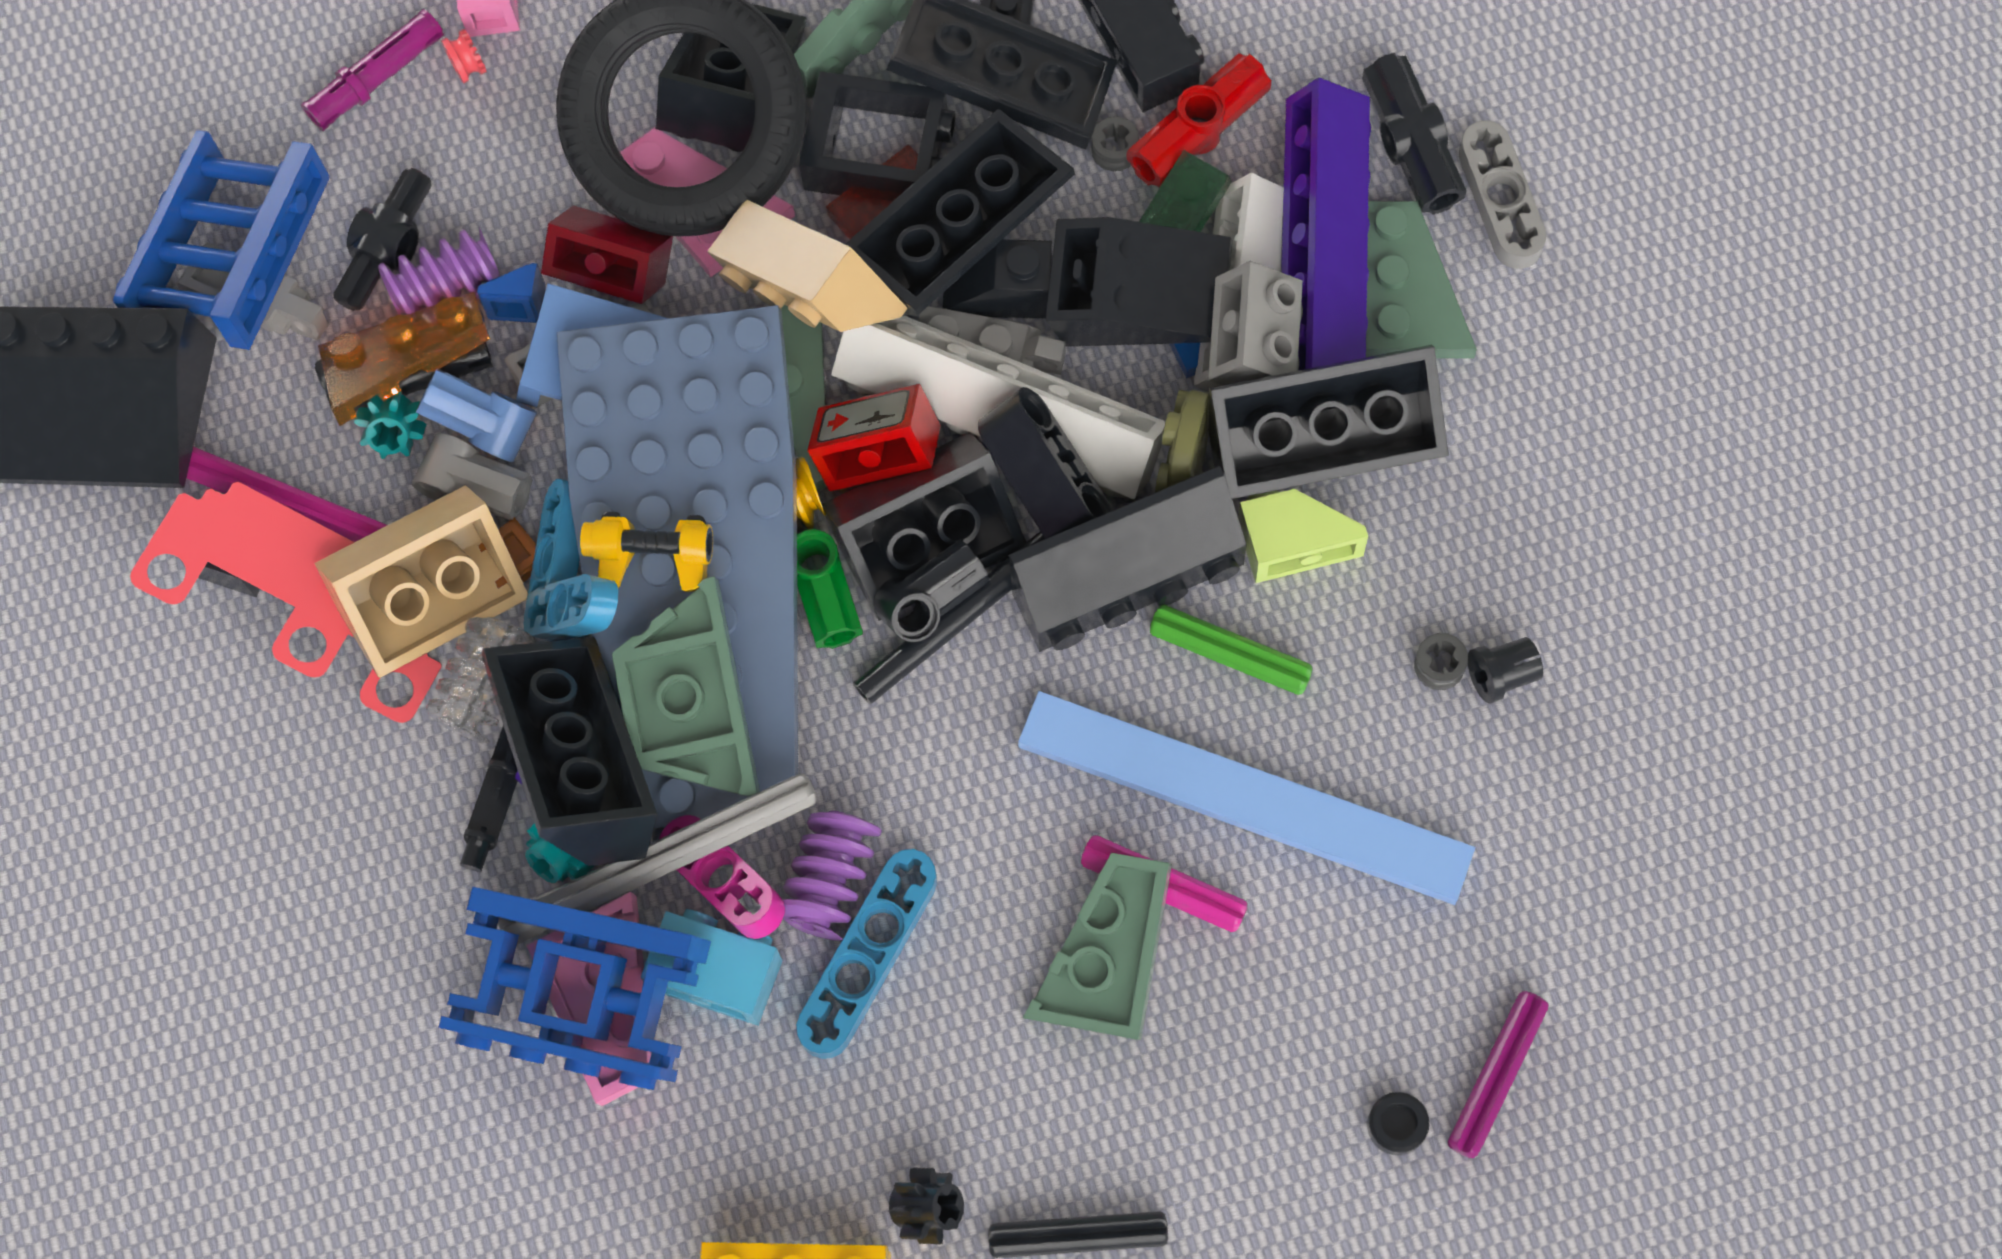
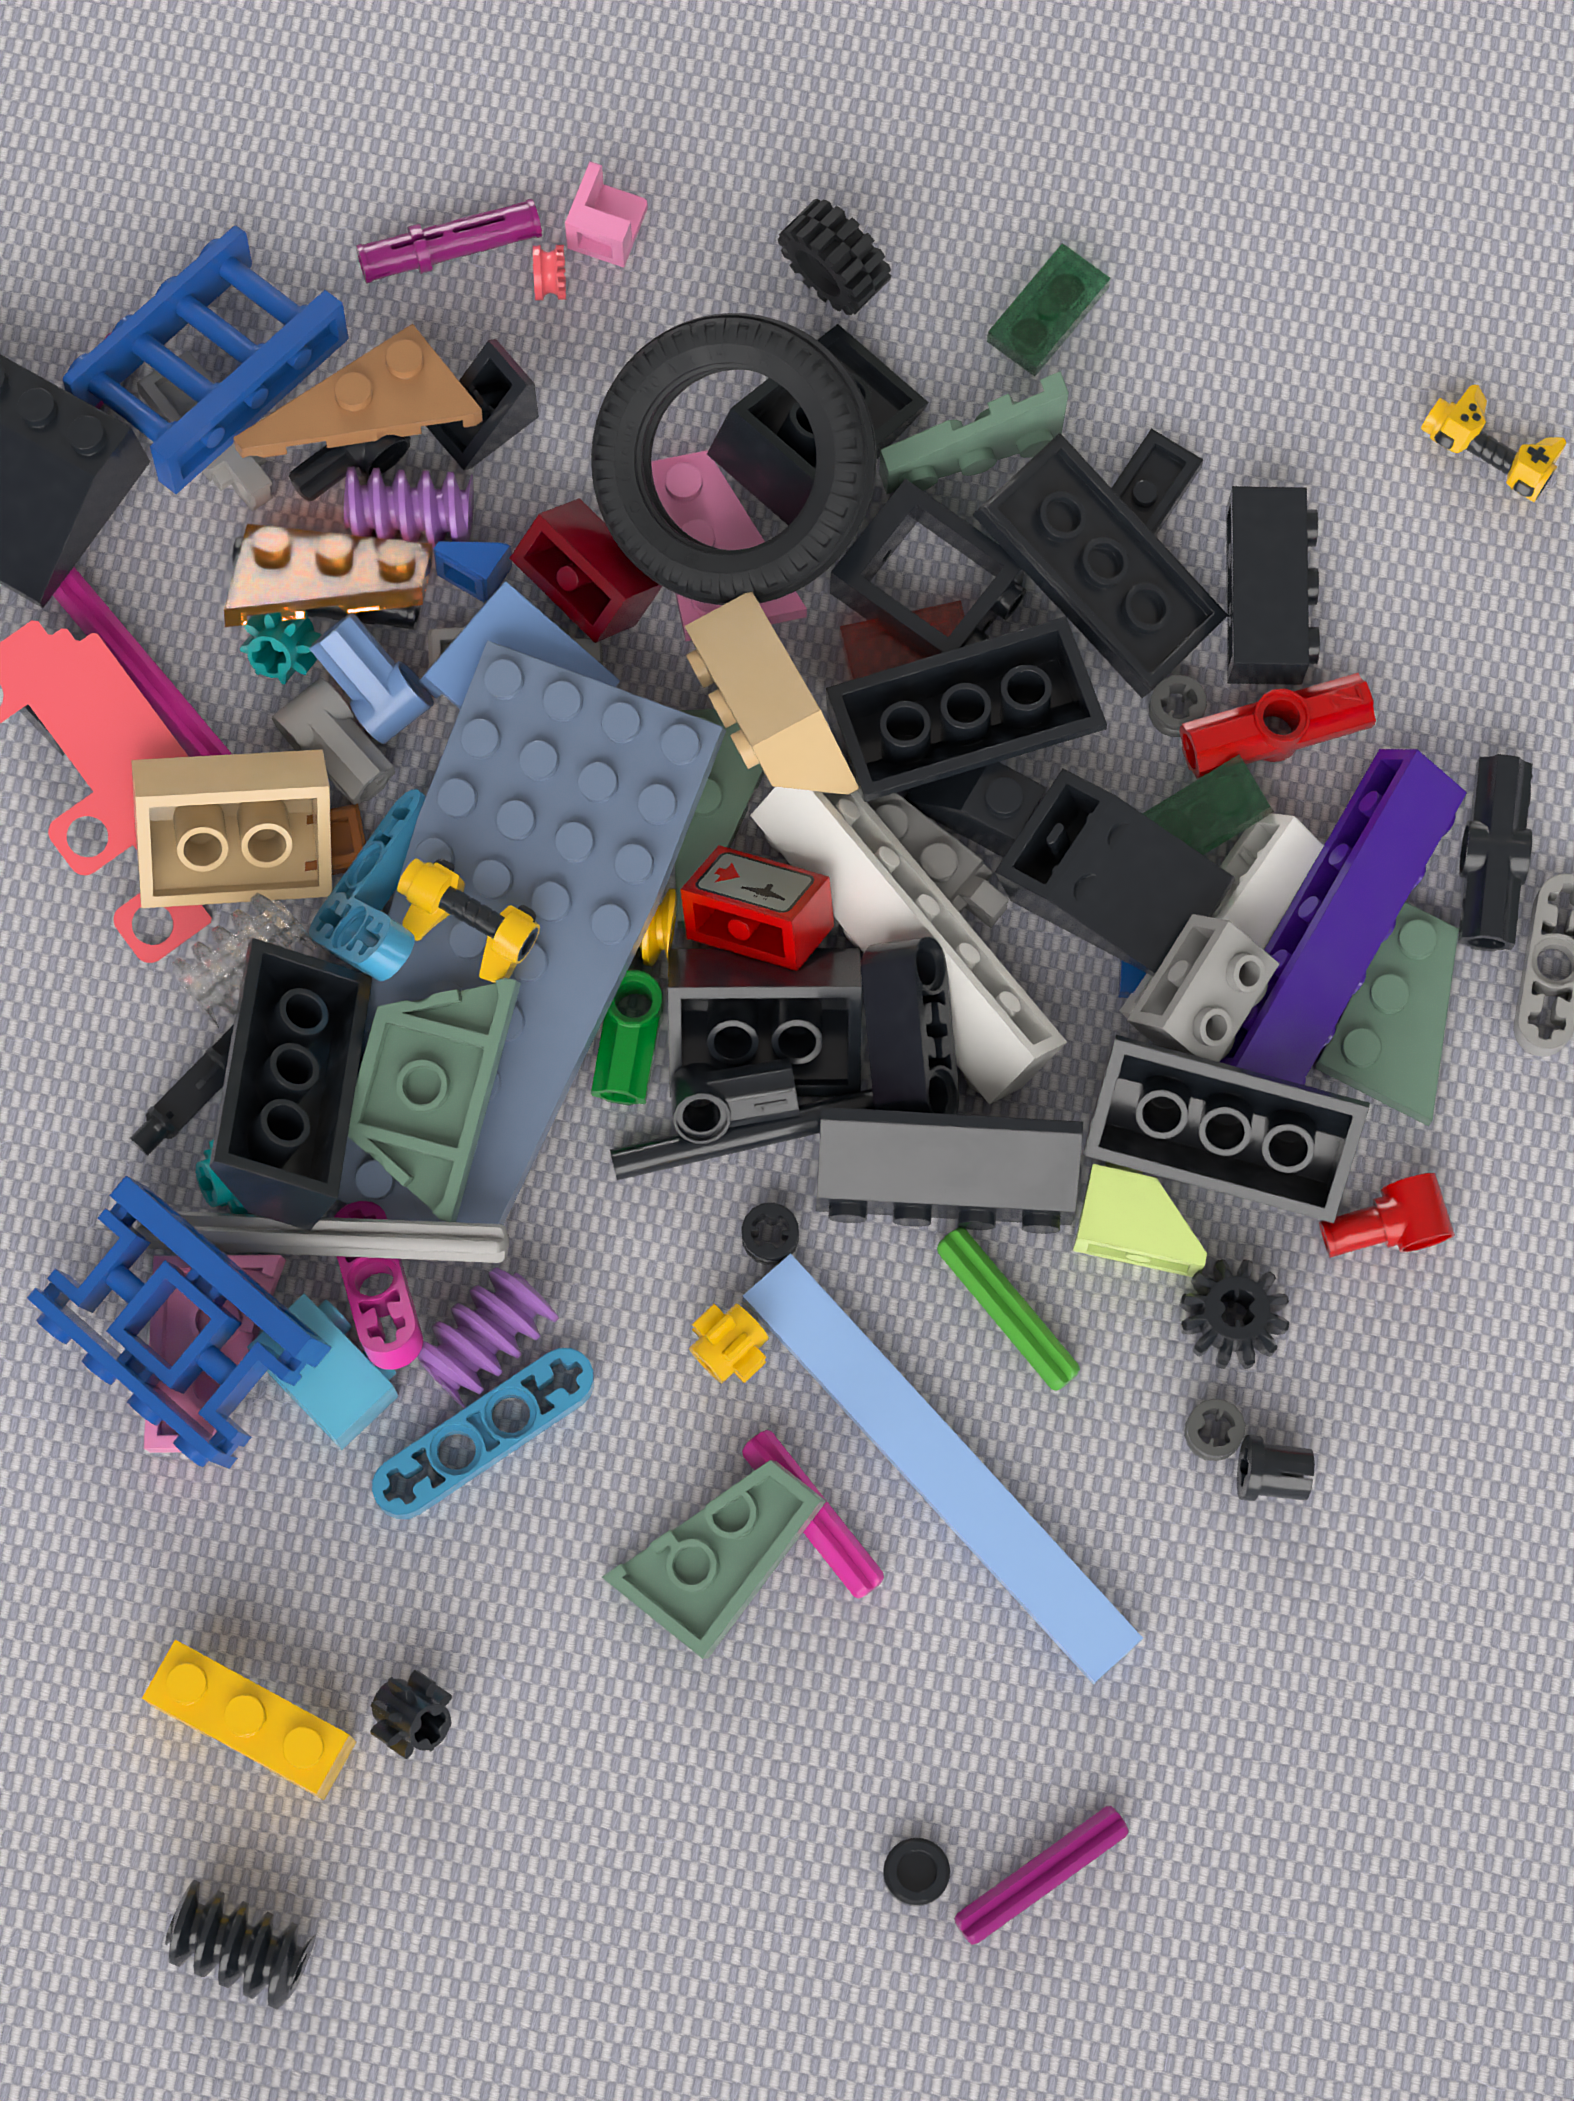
camera: 20 degrees right, 5 degrees up
(372, 201) = (377, 395): none -> medium nougat wing
(464, 173) = (506, 404): none -> black slope
(1007, 669) = (772, 1214): none -> black bush
(1027, 782) = (729, 1343): none -> yellow gear
(1078, 1234) = (545, 1817): black axle -> none
(1187, 436) = (1072, 1072): olive tile -> none
(1430, 571) = (1209, 1308): none -> black gear
(1496, 427) = (1406, 1215): none -> red pin

